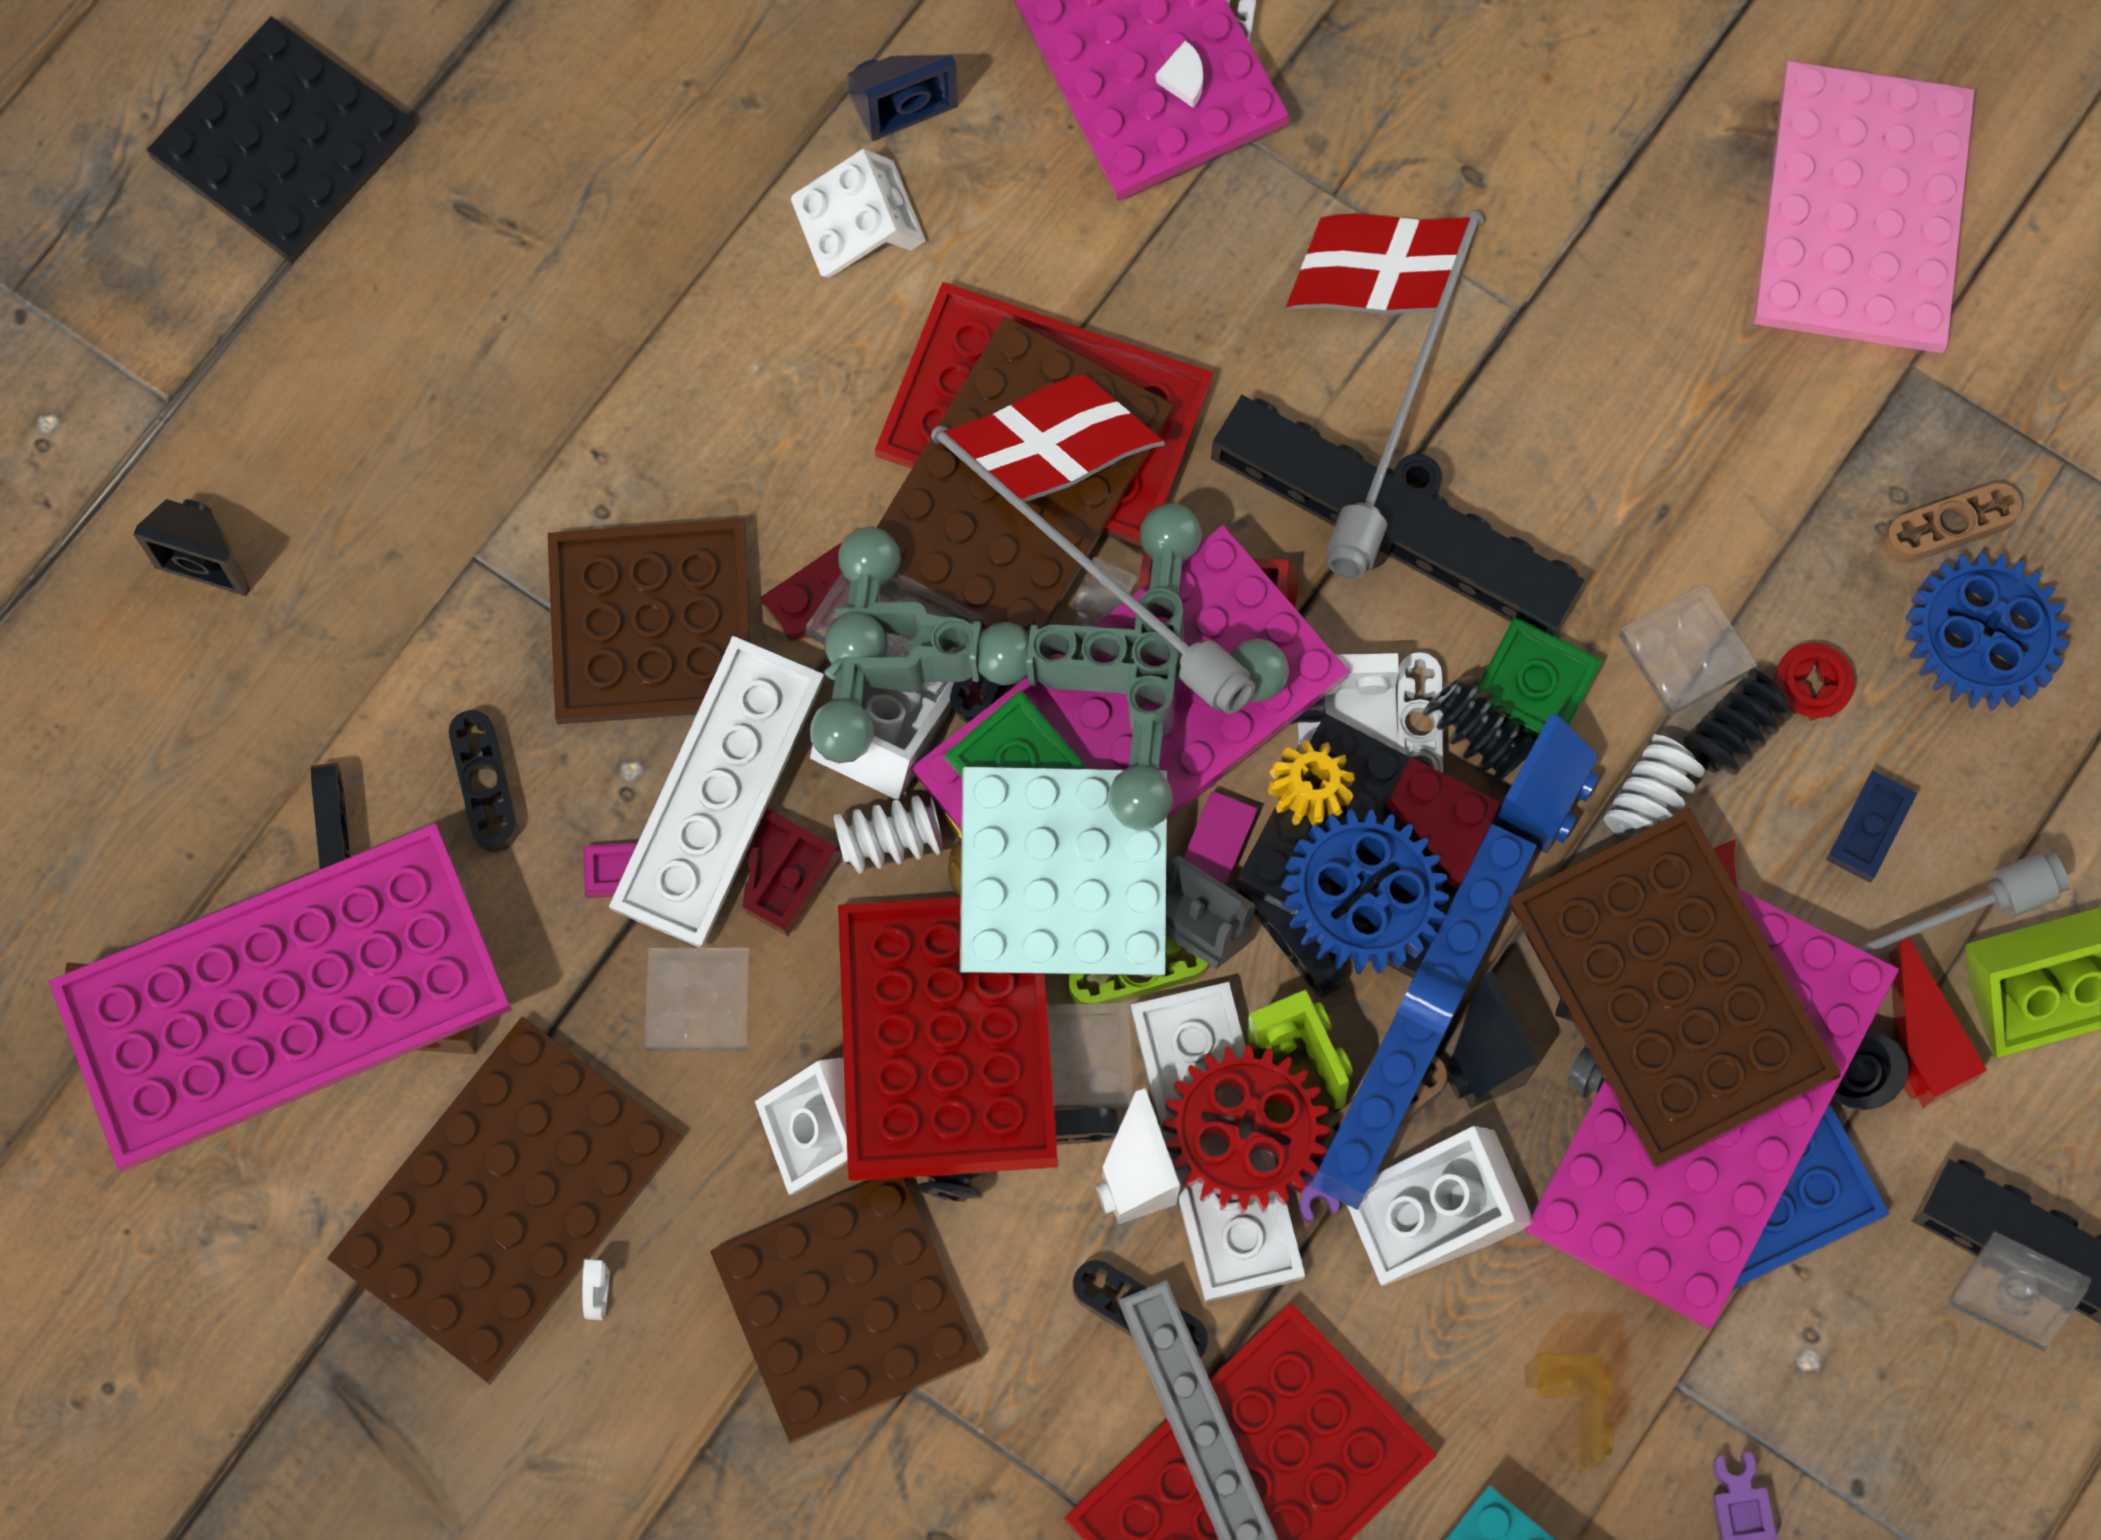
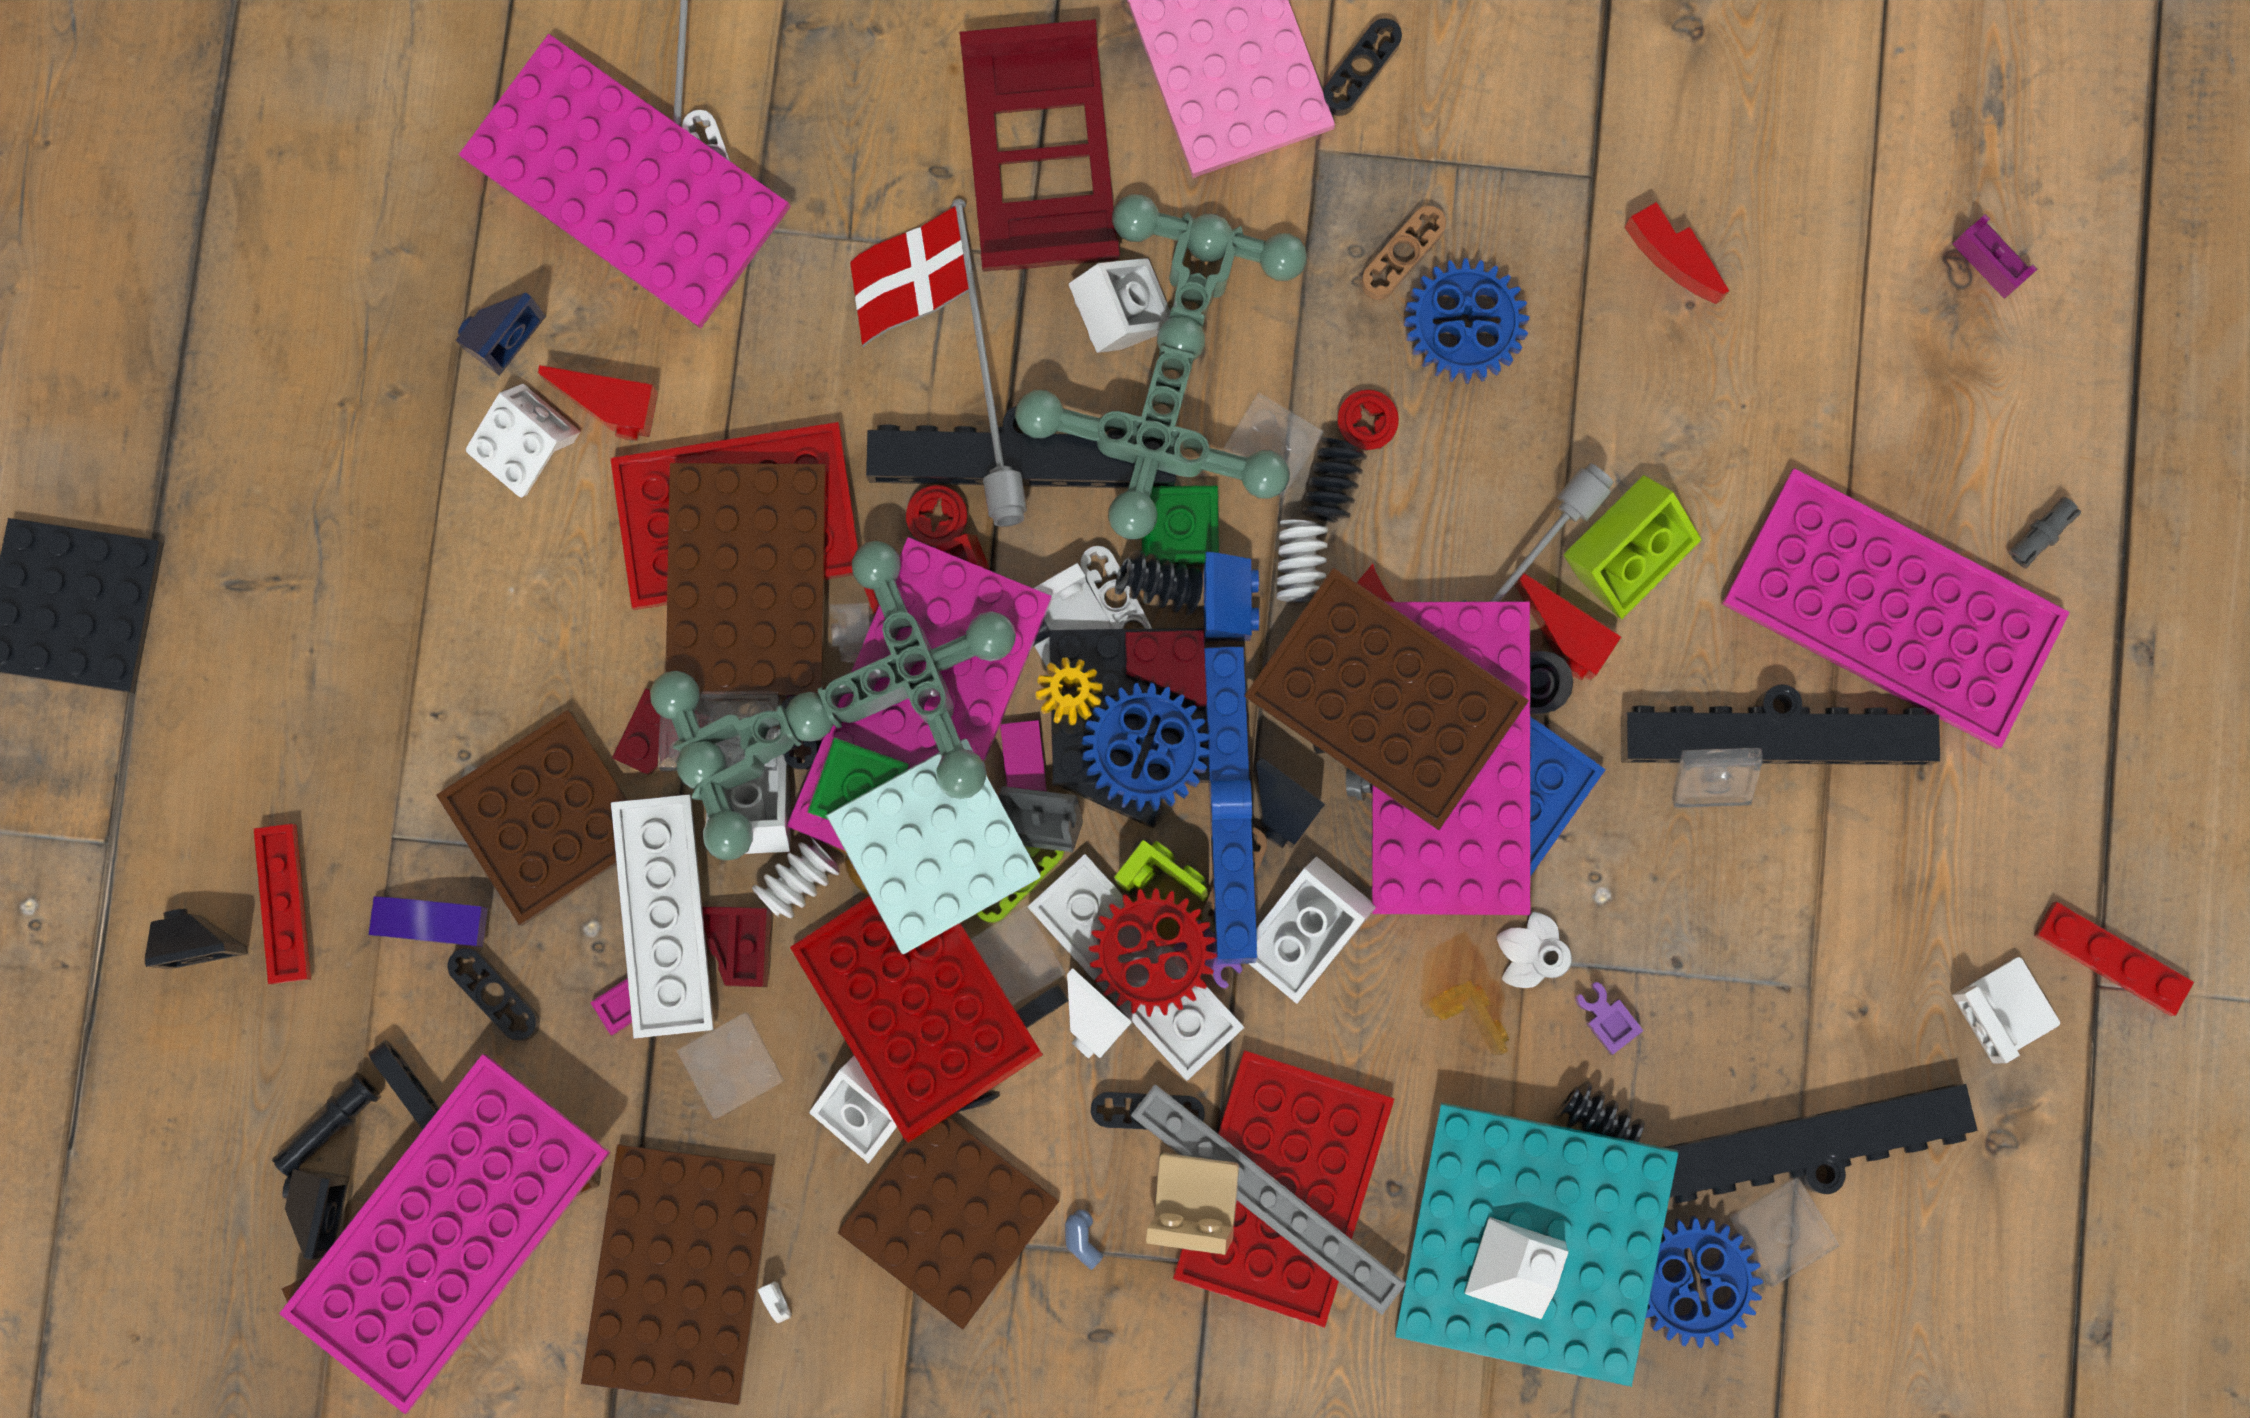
camera: 30 degrees left, 10 degrees up
(156, 896) = (315, 1208): none -> black slope
(242, 814) = (339, 1112): none -> black pin
(314, 561) = (282, 904): none -> red plate
(461, 663) = (428, 921): none -> dark purple slope
(978, 1412) = (1078, 1238): none -> sand blue arm
(981, 228) = (615, 402): none -> red slope
(1053, 444) = (758, 542): flag -> none
(1139, 1438) = (1194, 1204): none -> tan bracket
(1183, 74) = (697, 213): white tile -> none
(1262, 510) = (926, 501): none -> red gear
(1599, 411) = (1120, 303): none -> white slope
(1631, 118) = (1029, 72): none -> dark red piece
(1643, 482) = (1180, 343): none -> sand green piece
(1687, 1374) = (1528, 950): none -> white plate
(1871, 826) = (1458, 504): dark blue plate -> none
(2021, 284) = (1386, 52): none -> black beam

